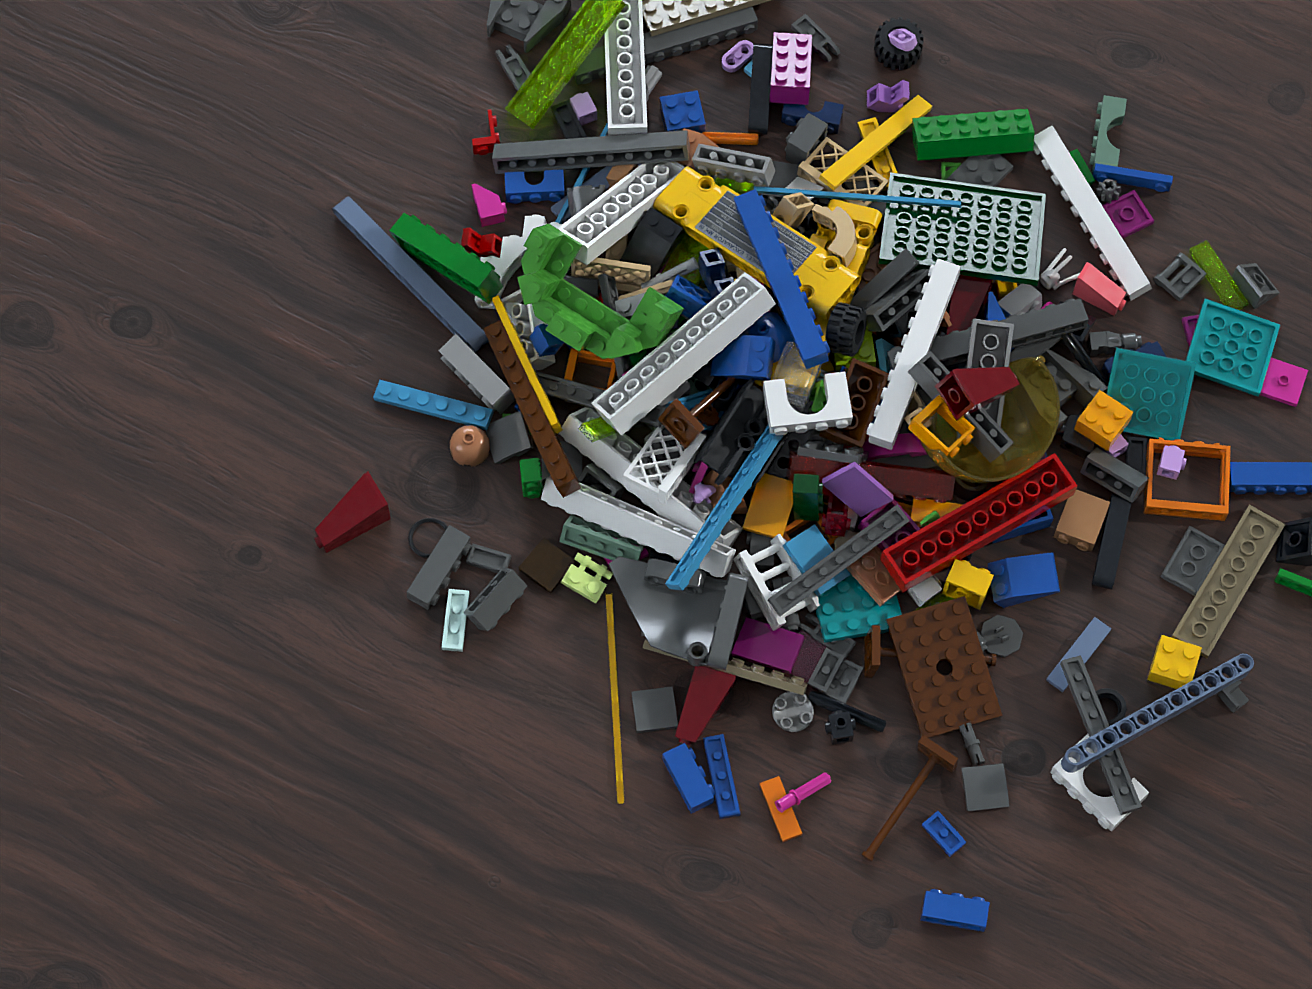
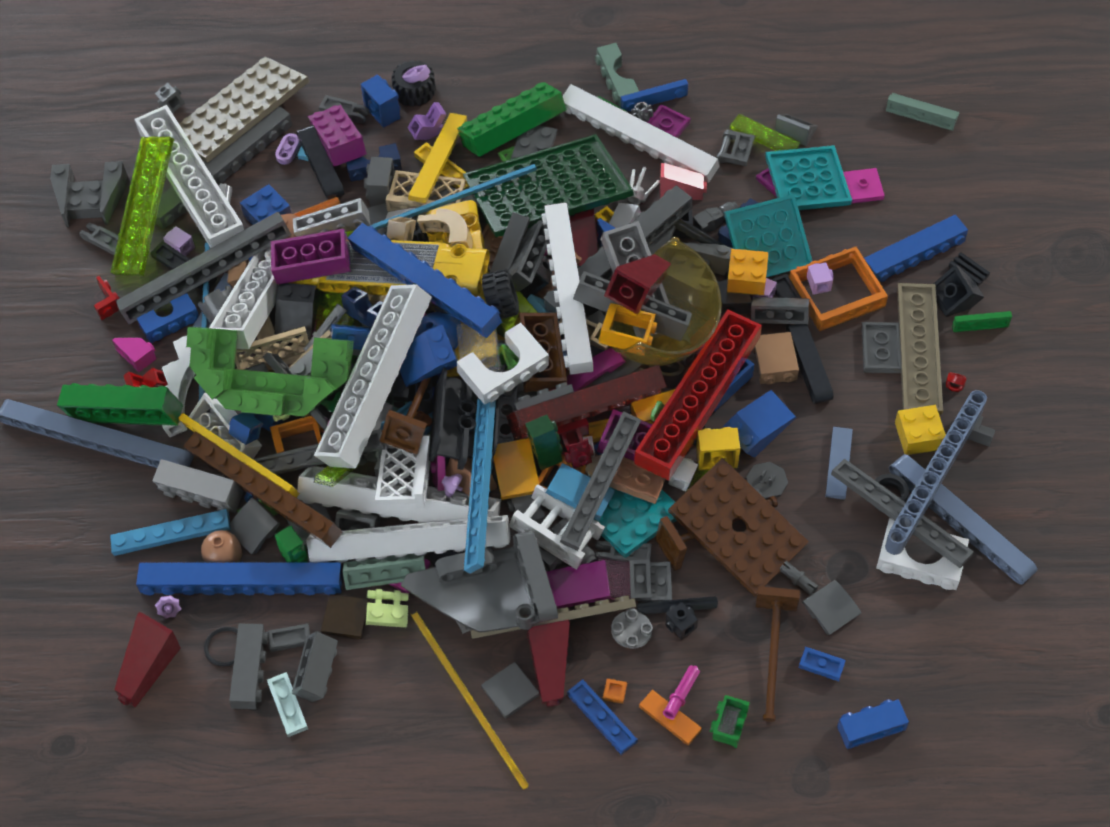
camera: 25 degrees left, 10 degrees down
(397, 475) = (168, 606): none -> lavender piece
(472, 481) = (240, 578): none -> blue brick
(688, 777) = (574, 732): blue brick -> none
(690, 198) = (310, 256): none -> magenta brick
(746, 759) = (615, 691): none -> orange tile
(830, 840) = (730, 720): none -> green window
(854, 49) = (381, 100): none -> blue brick
(857, 489) = (584, 413): medium lavender tile -> none
(1161, 776) = (969, 524): none -> sand blue beam
(1242, 631) = (957, 379): none -> red tile

